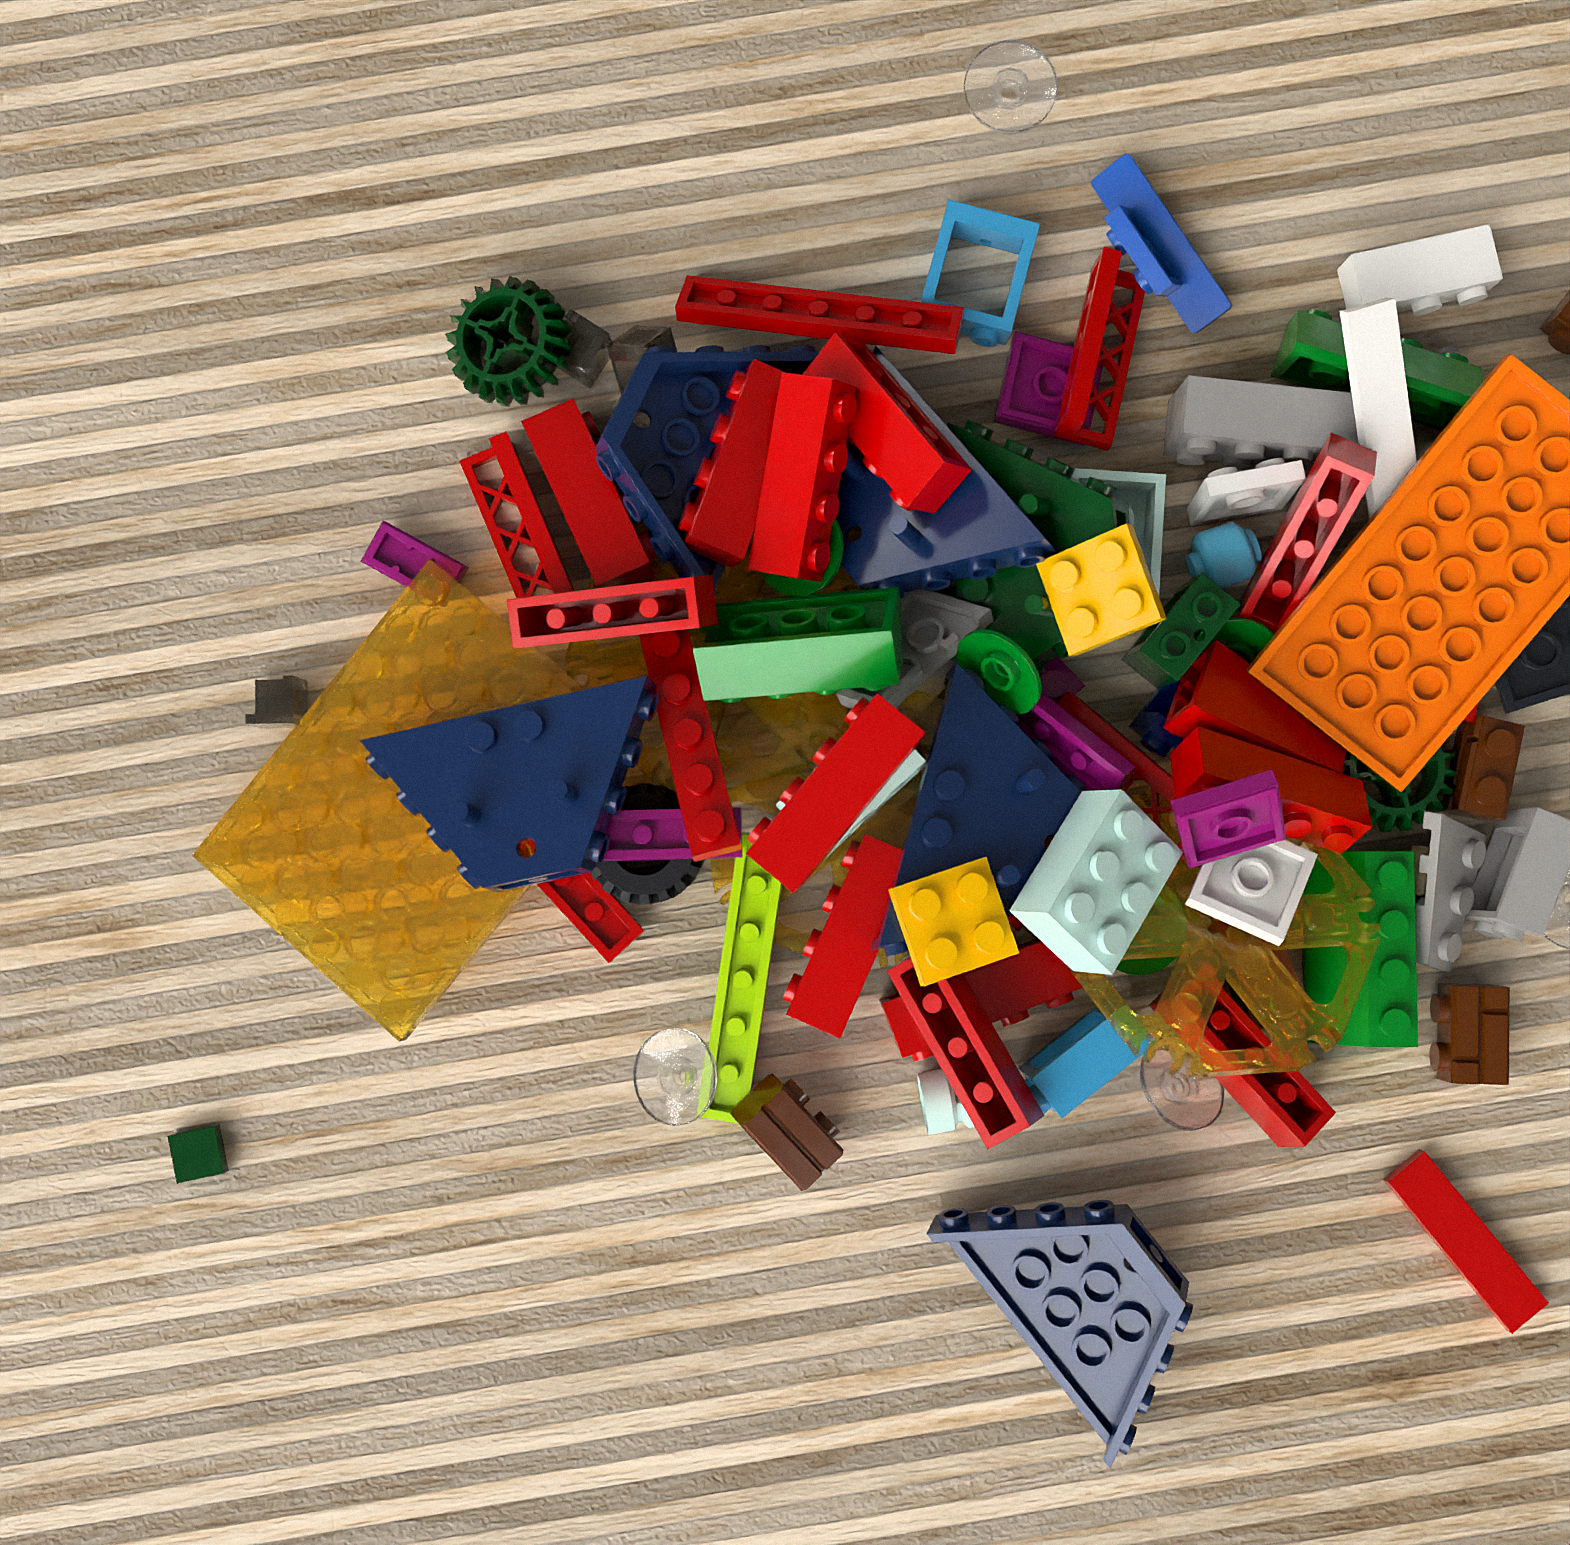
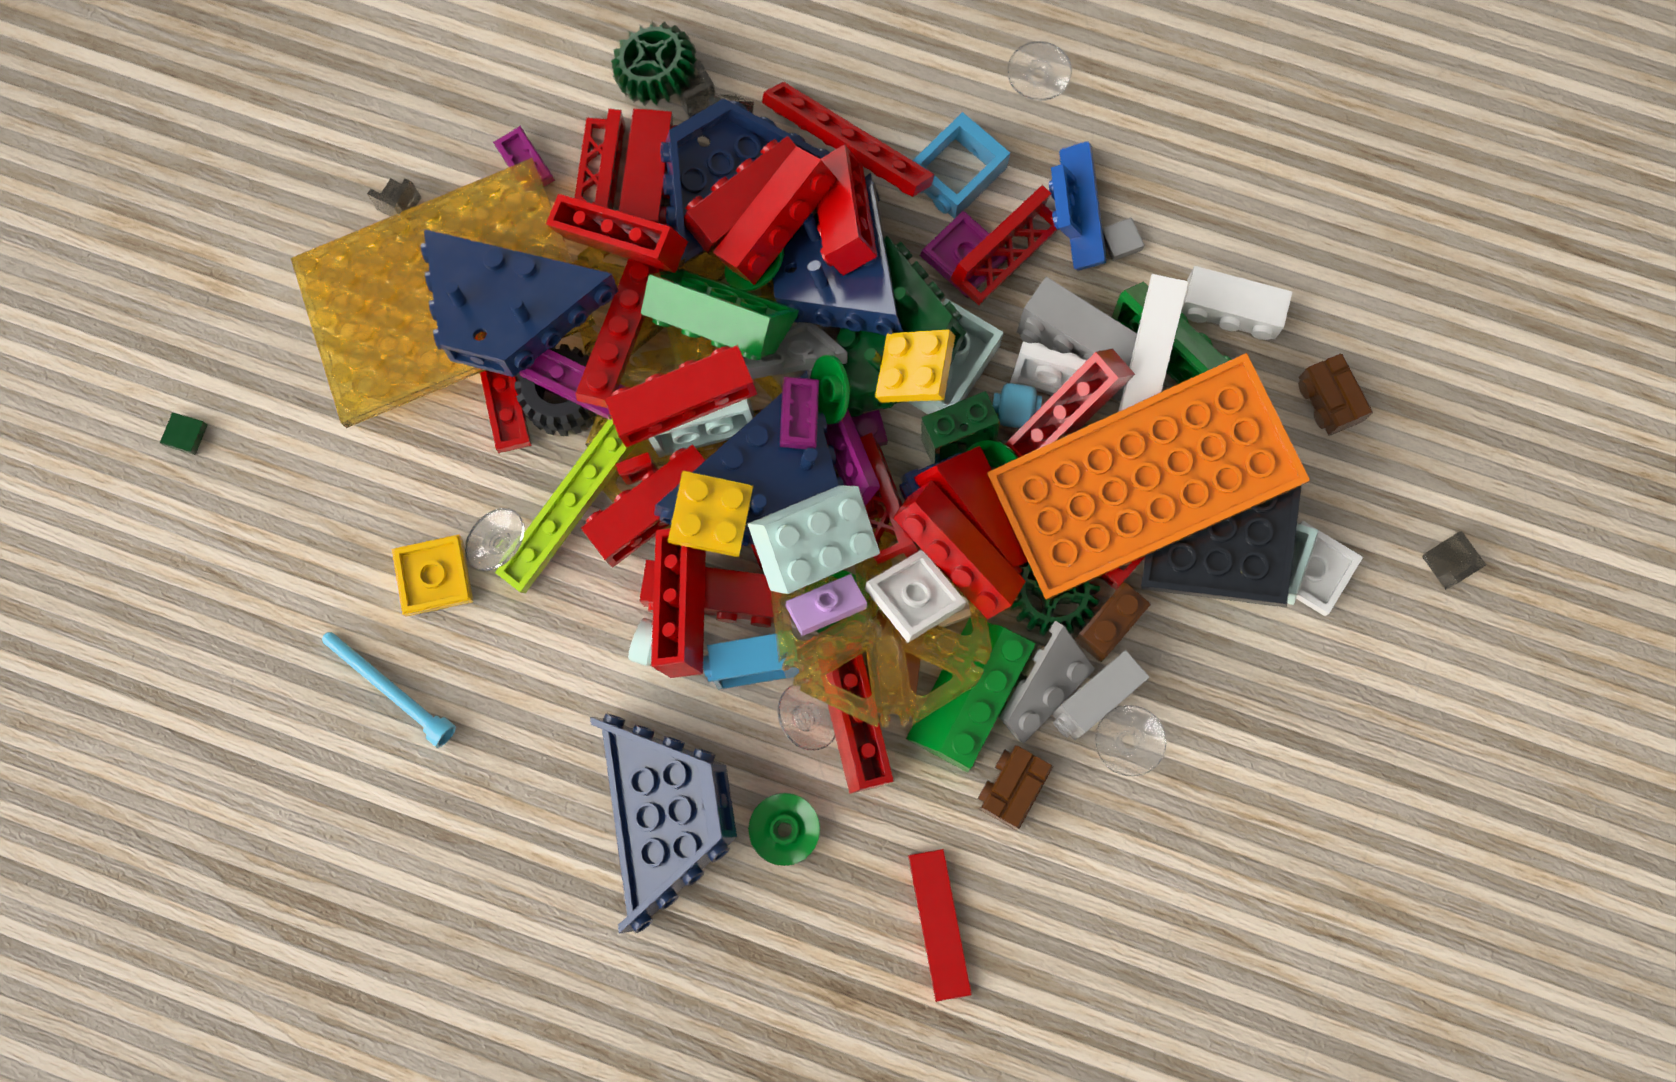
camera: 30 degrees right, 10 degrees down
(622, 1161) = (432, 575): none -> yellow plate
(739, 1342) = (437, 729): none -> medium azure piece
(787, 1131) = (542, 607): reddish brown brick -> none
(806, 897) = (635, 468): none -> red tile
(985, 727) = (799, 413): none -> magenta plate
(1154, 953) = (826, 605): none -> lavender plate
(1229, 819) = (915, 540): magenta plate -> none
(1233, 261) = (1122, 239): none -> light grey tile
(1246, 1247) = (770, 815): none -> green dish

